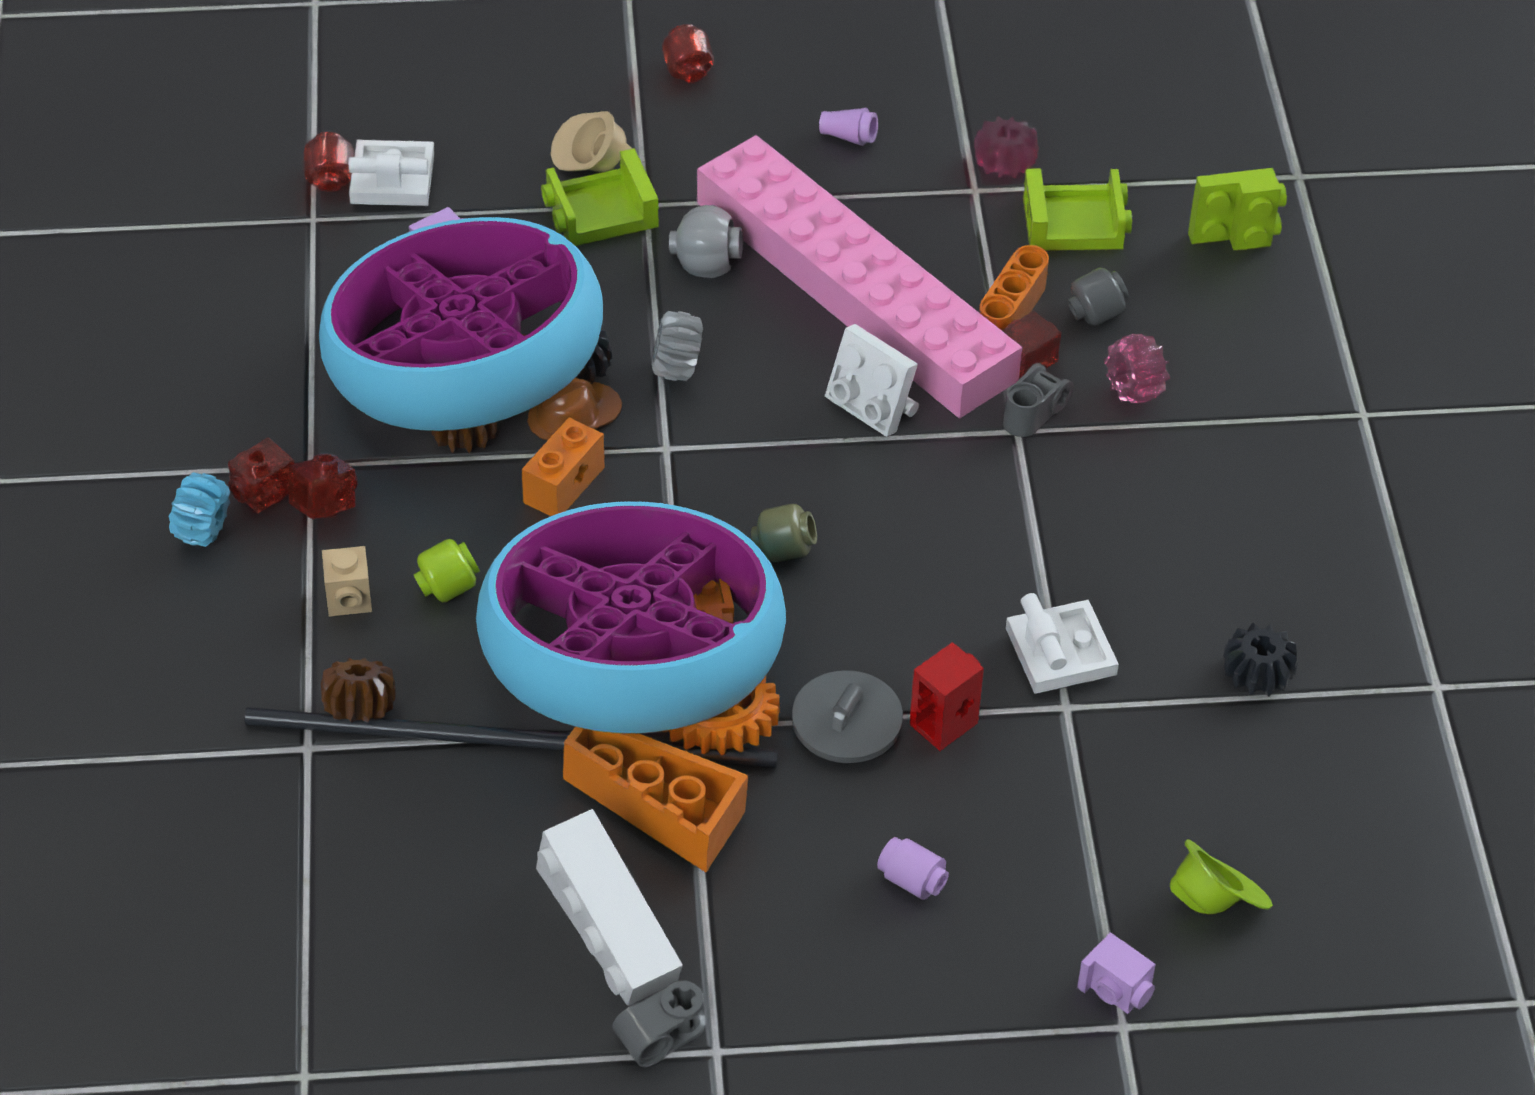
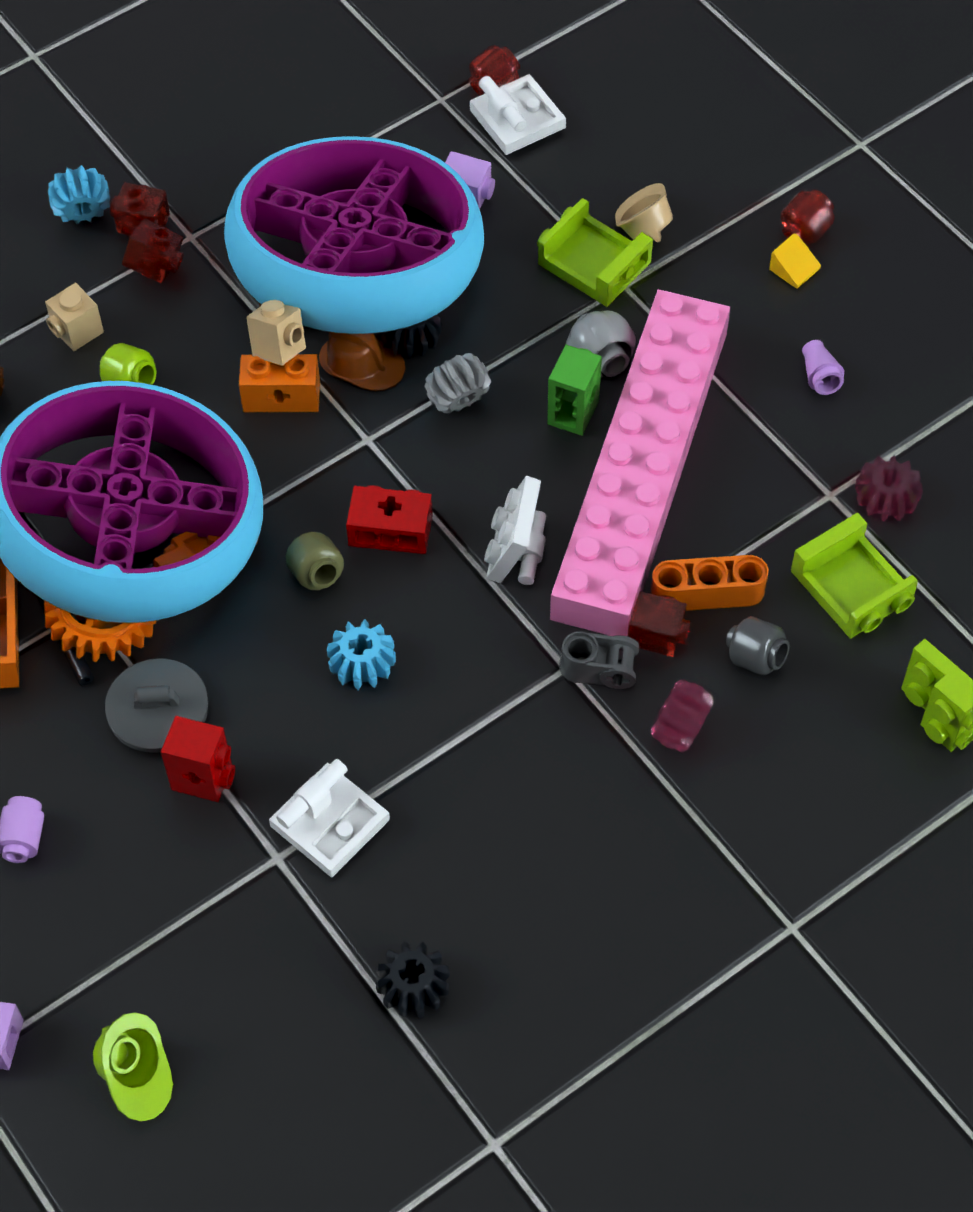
camera: 60 degrees right, 10 degrees up
(537, 420) = (276, 332): none -> tan brick
(723, 88) = (794, 261): none -> yellow slope
(755, 273) = (574, 389): none -> bright green brick
(780, 463) = (389, 519): none -> red brick
(909, 547) = (346, 657): none -> medium azure gear

